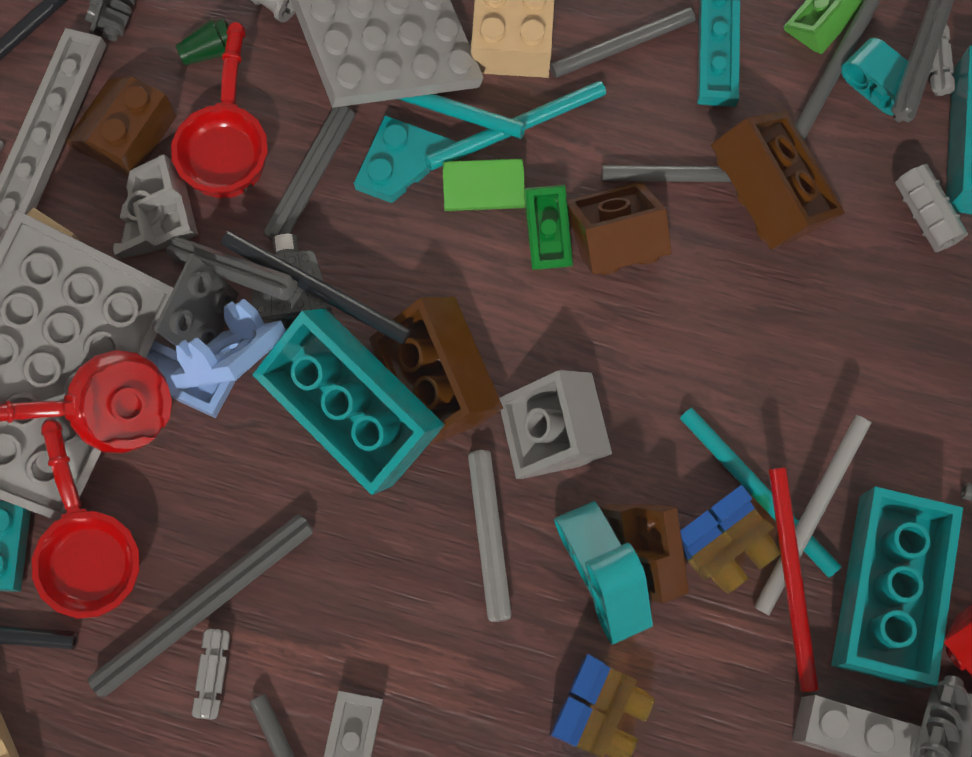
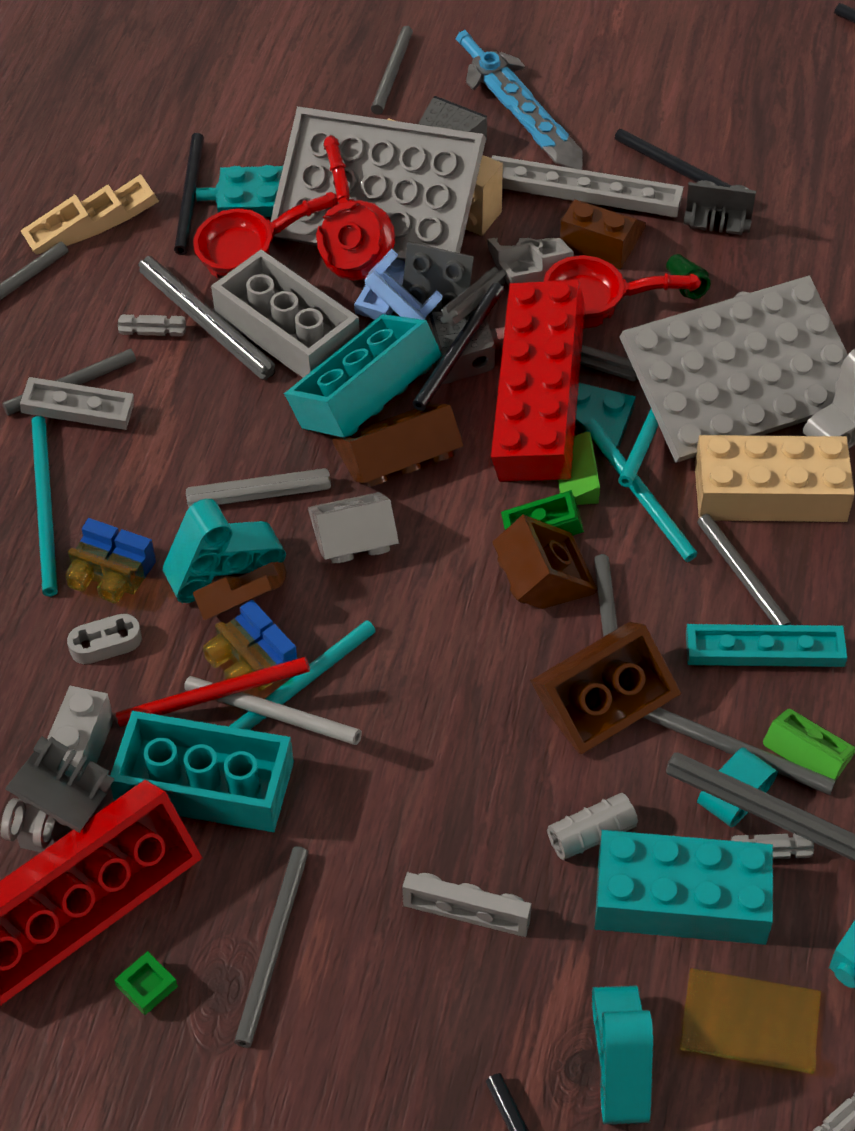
camera: 90 degrees right, 20 degrees down
(229, 496) = (283, 313): none -> light grey brick
(369, 203) = (539, 381): none -> red brick
(713, 709) = (104, 638): none -> light grey beam

